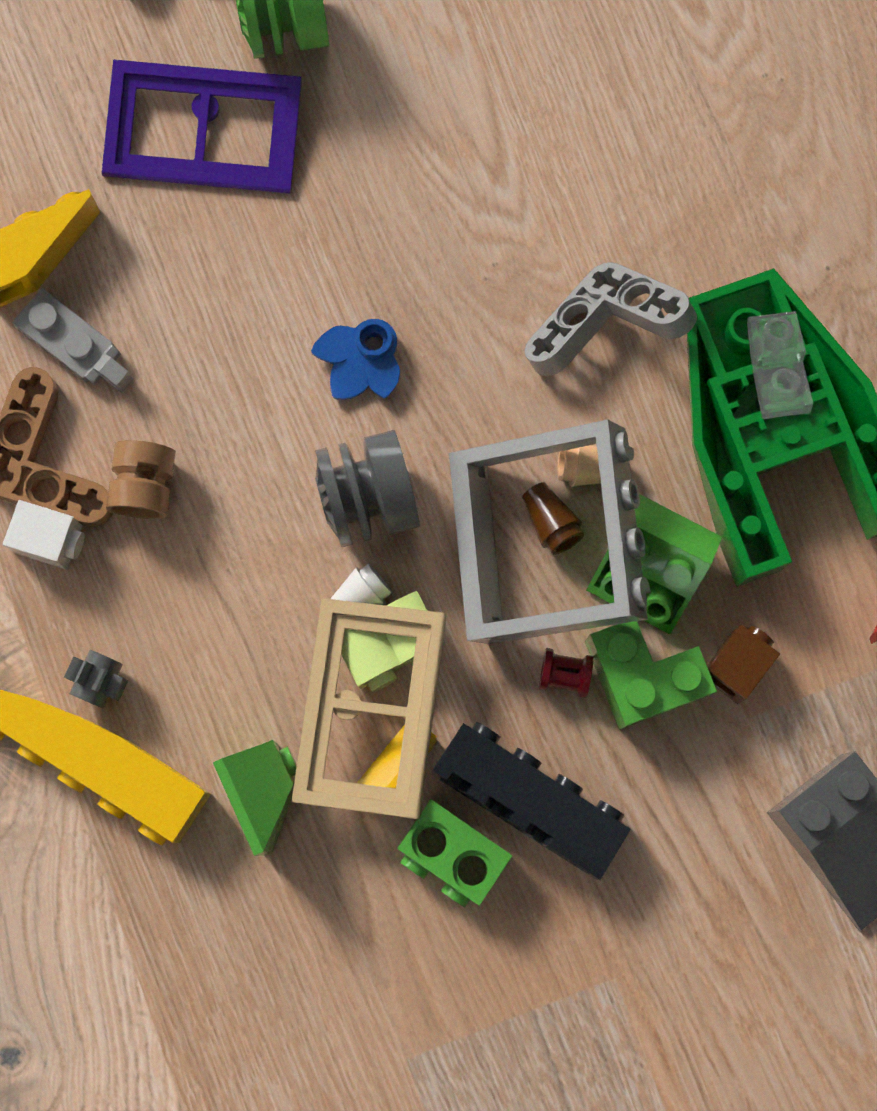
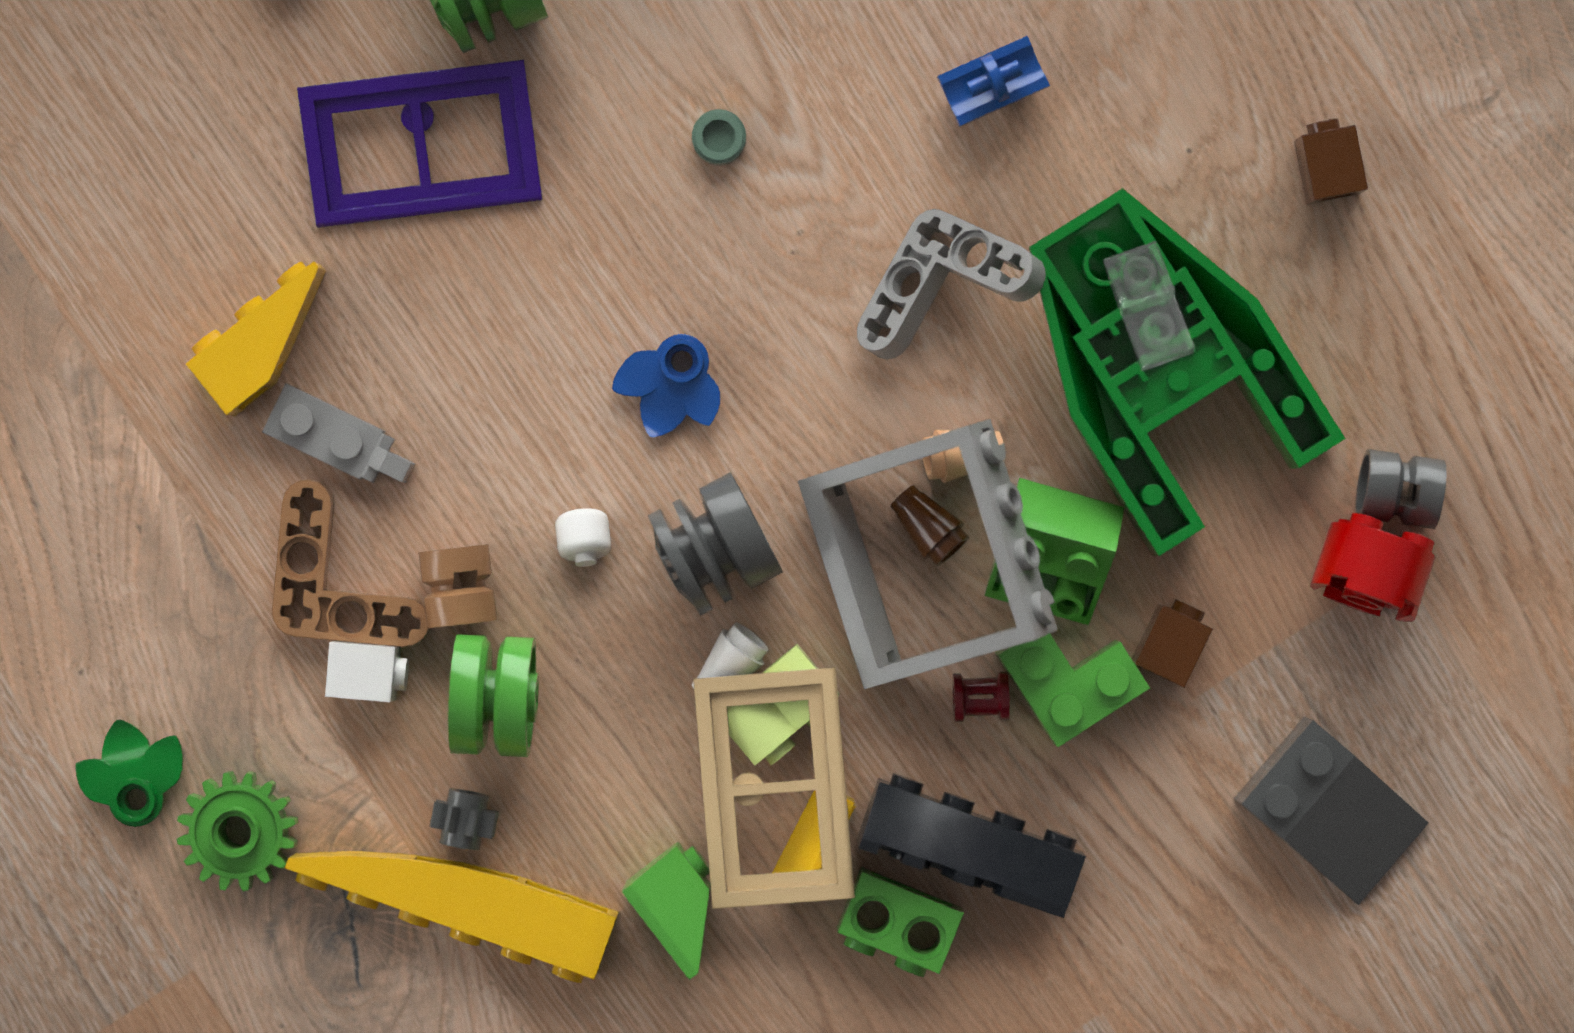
camera: 15 degrees left, 10 degrees up
(144, 573) = (486, 695): none -> bright green wheel
(257, 464) = (583, 536): none -> white piece
(445, 174) = (719, 137): none -> sand green tile
(680, 171) = (993, 81): none -> blue hips

